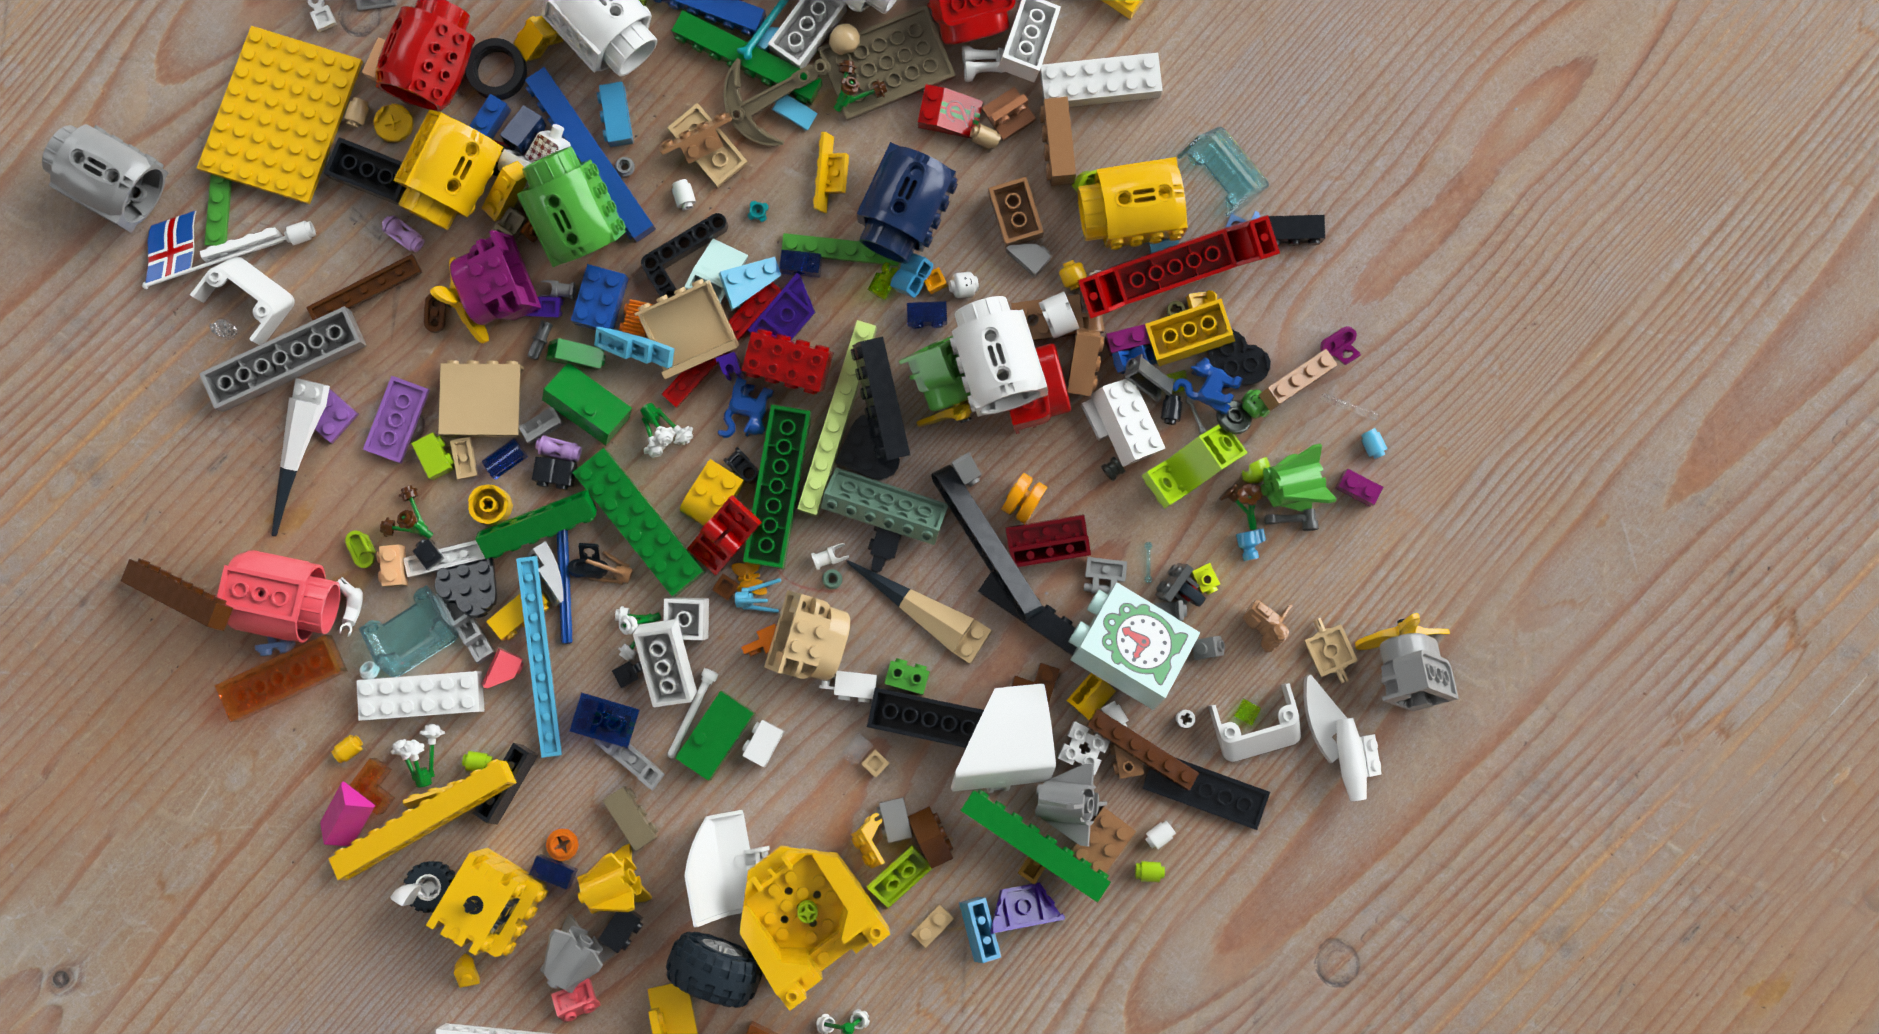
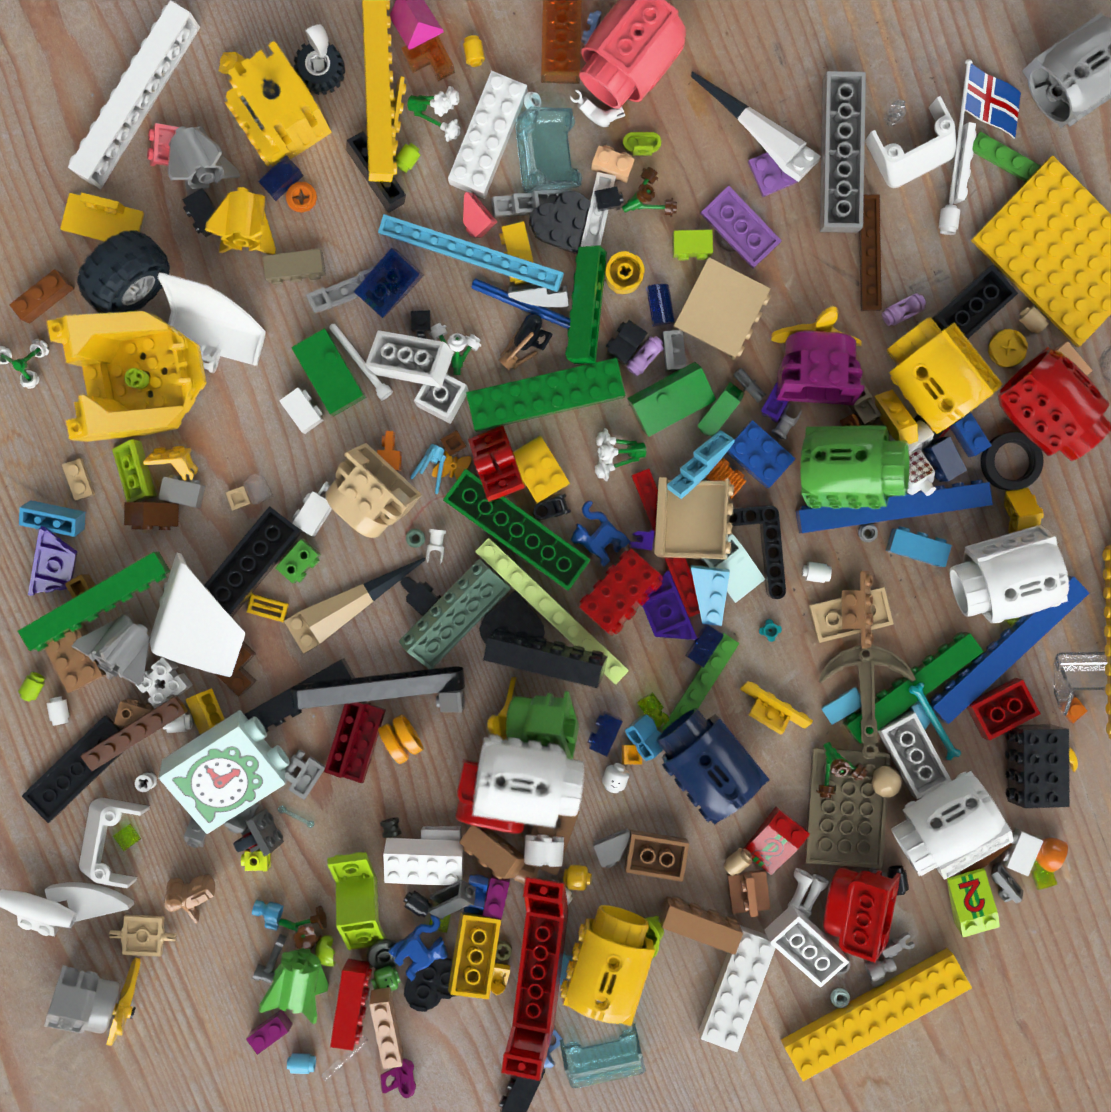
camera: 105 degrees right, 5 degrees up
(434, 313) = (819, 302): reddish brown plate -> none
(464, 458) = (677, 270): tan plate -> none
(962, 669) = (283, 612): none -> yellow tile
(1189, 401) = (387, 920): light grey hinge -> none
(1293, 424) = (351, 1004): none -> red brick

